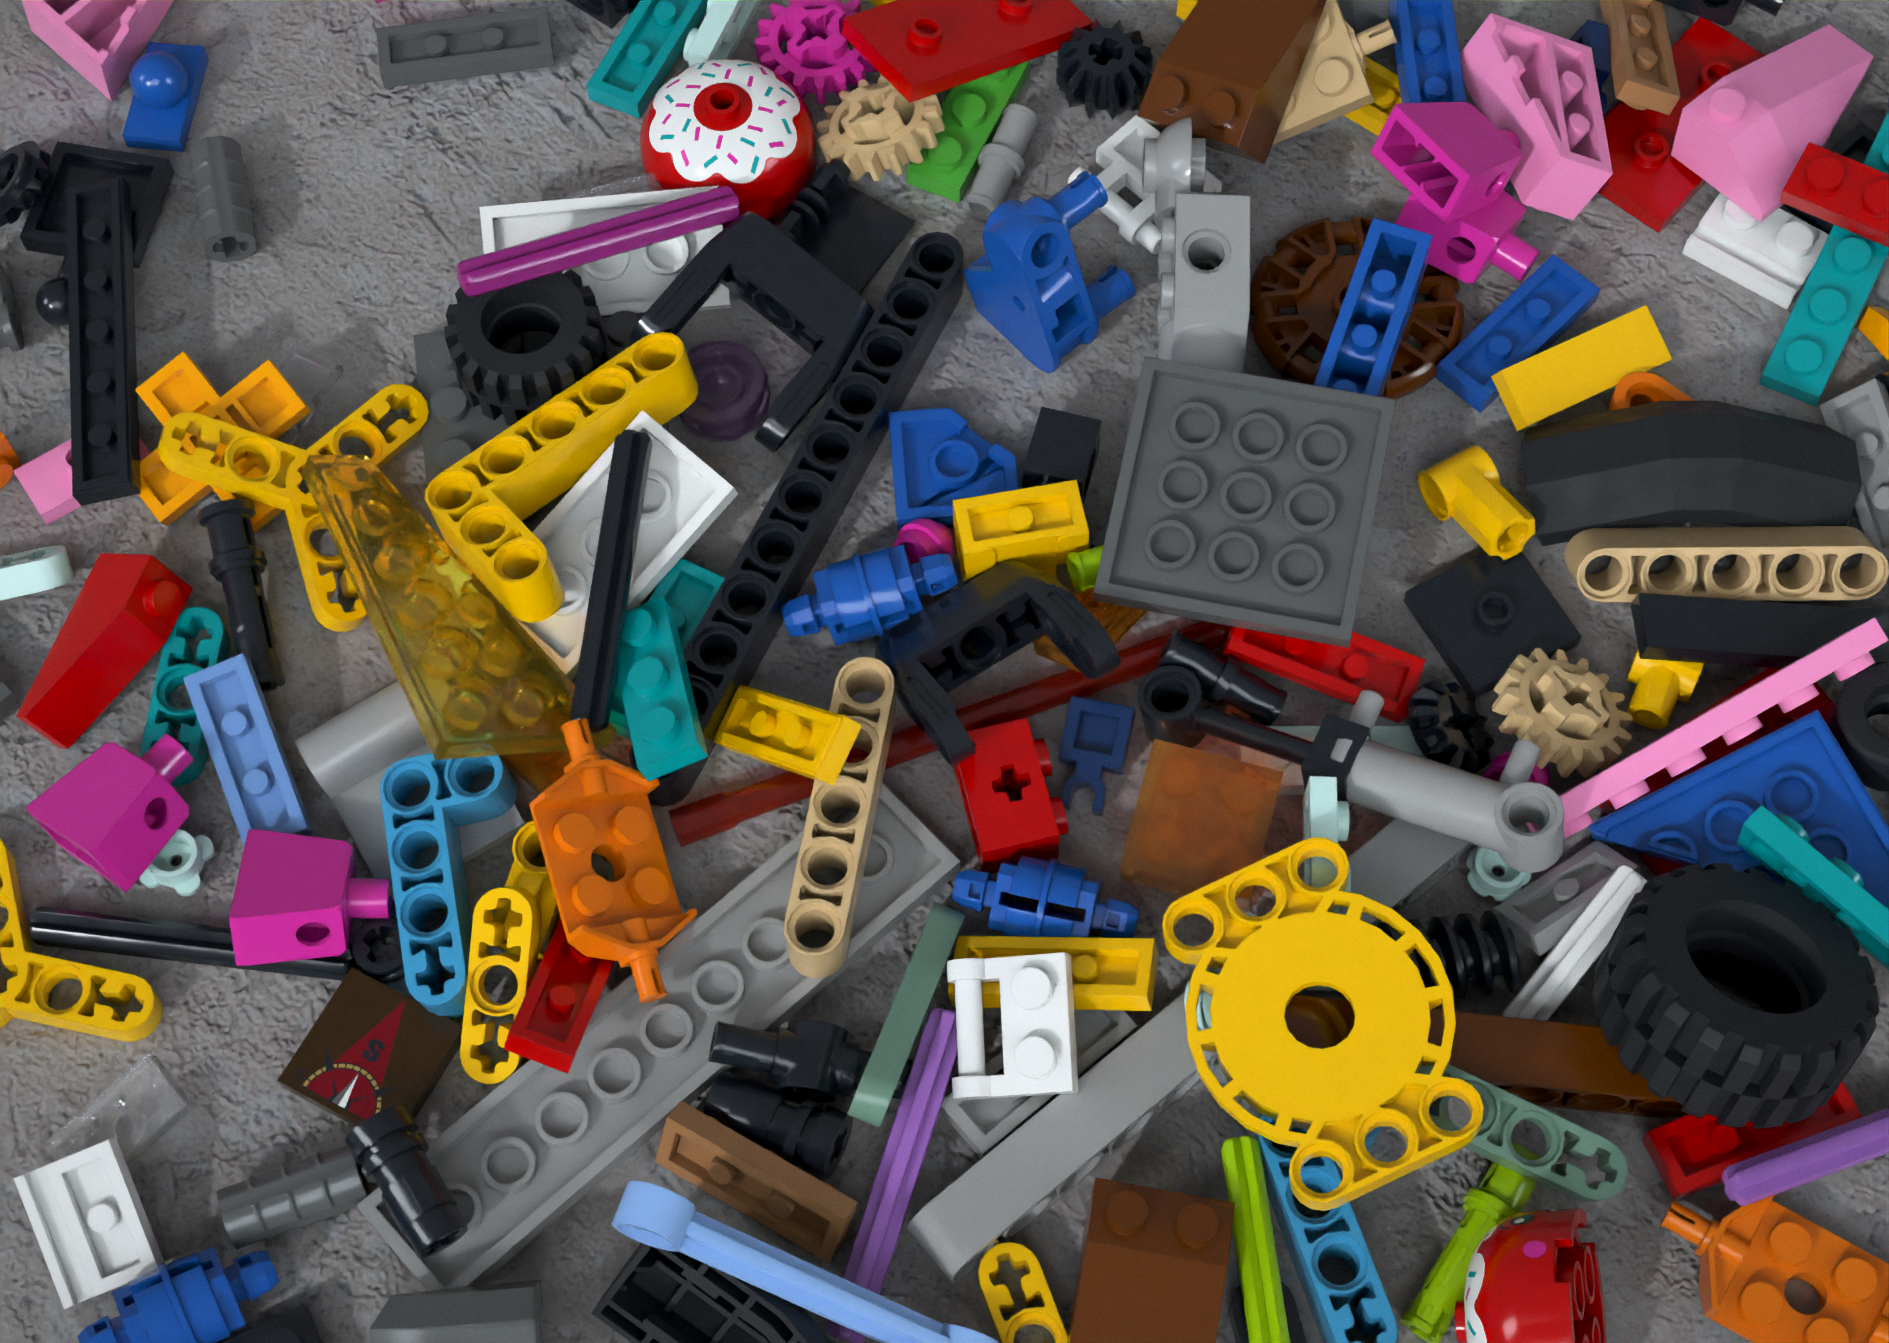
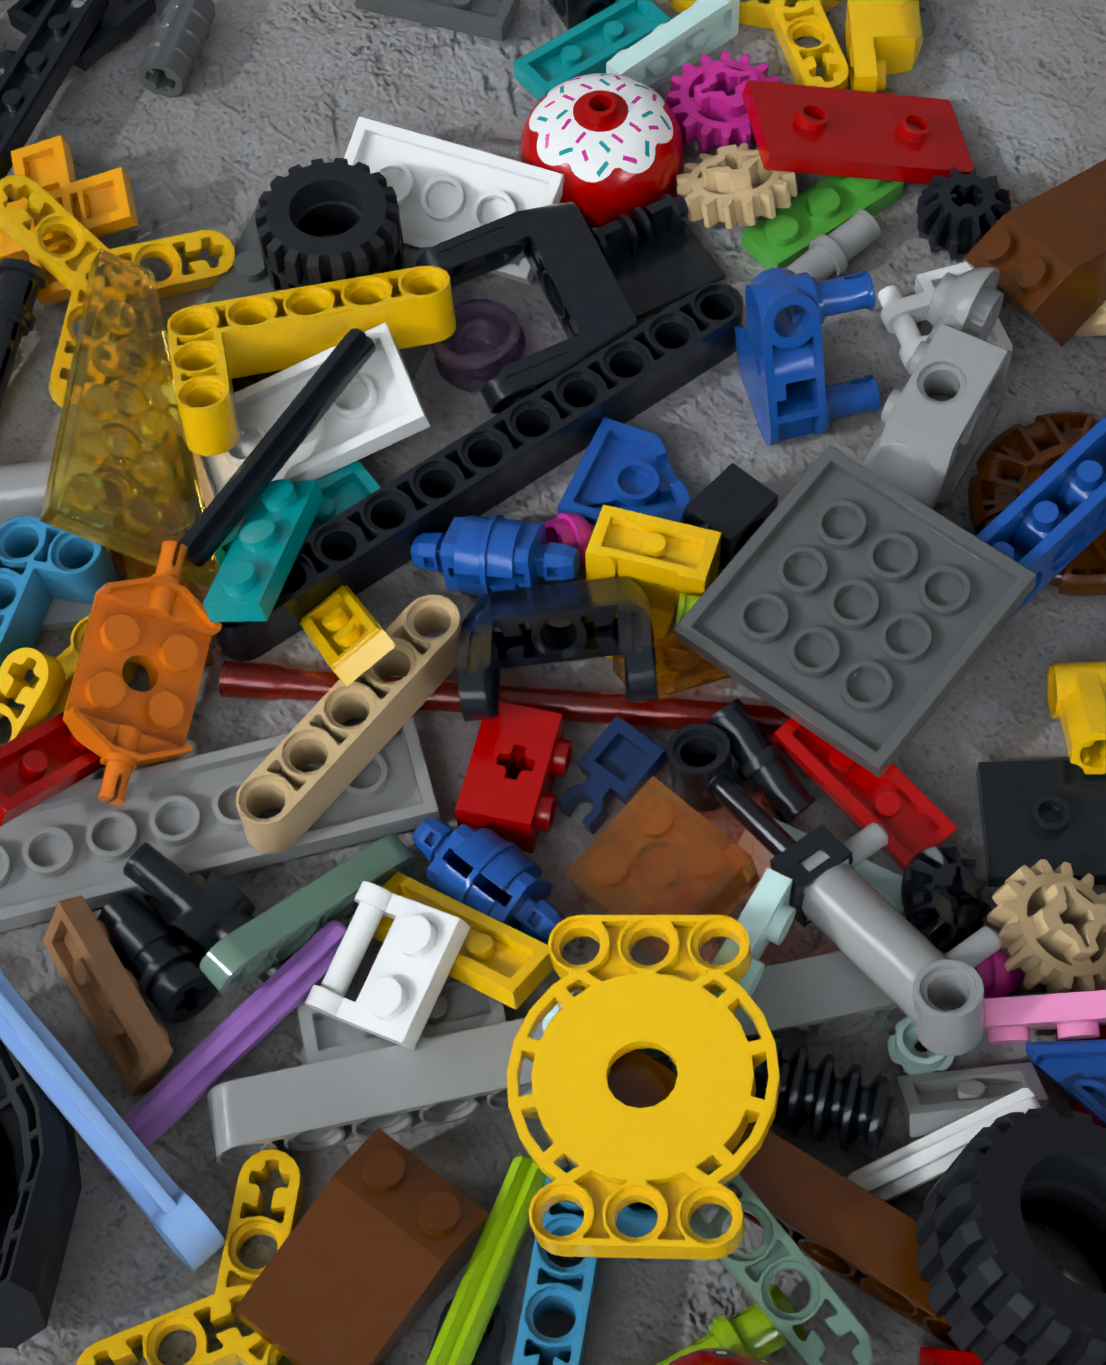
camera: 30 degrees right, 5 degrees down
(597, 241) = (426, 172): magenta axle -> none

